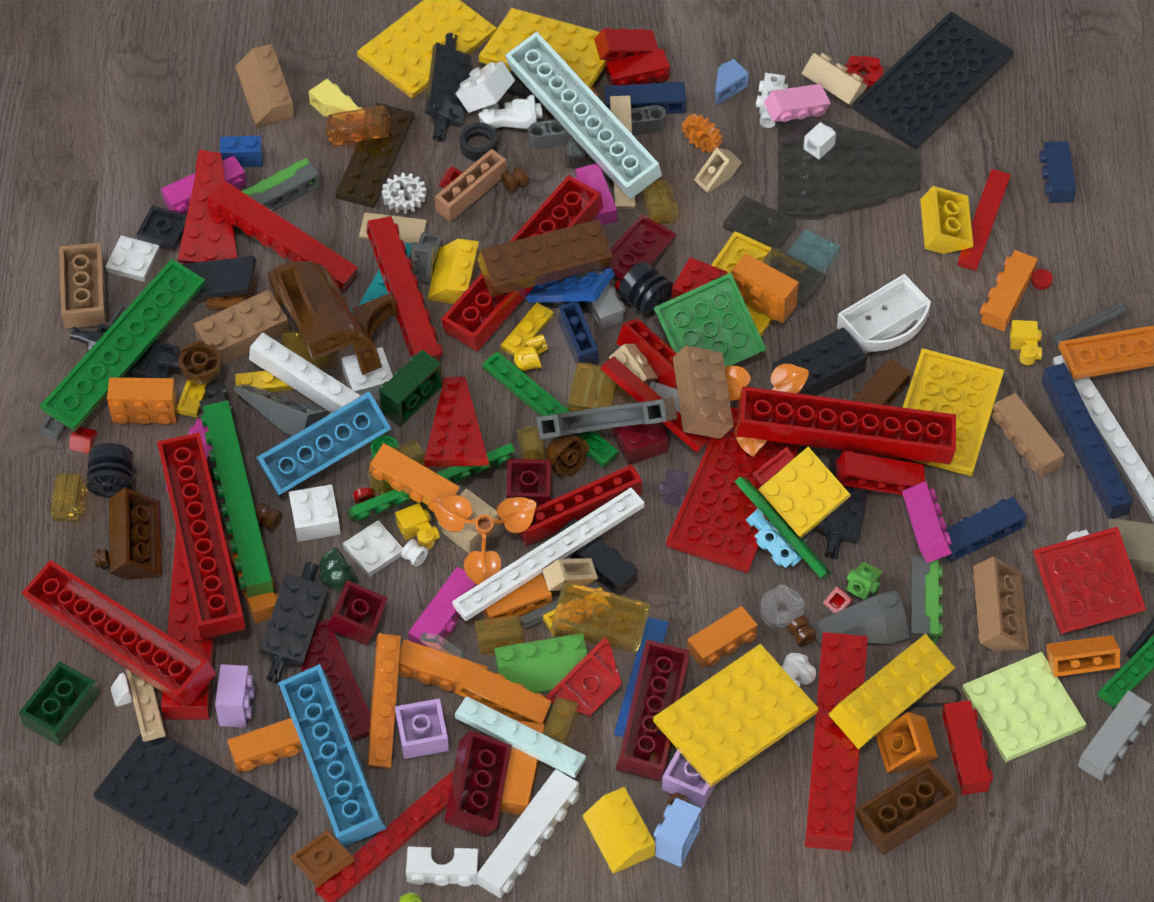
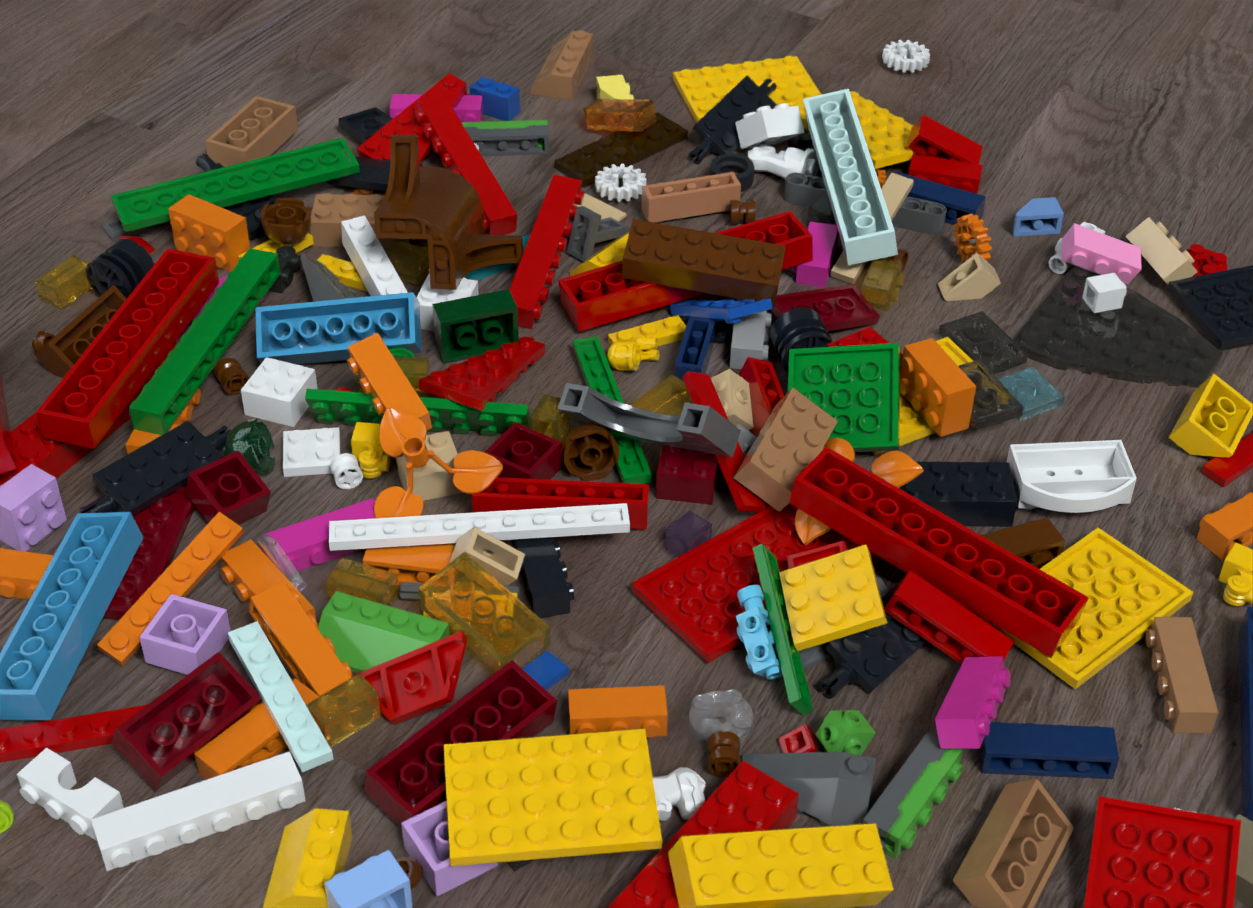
camera: 30 degrees right, 15 degrees down
(132, 258) = (318, 133): white plate -> none

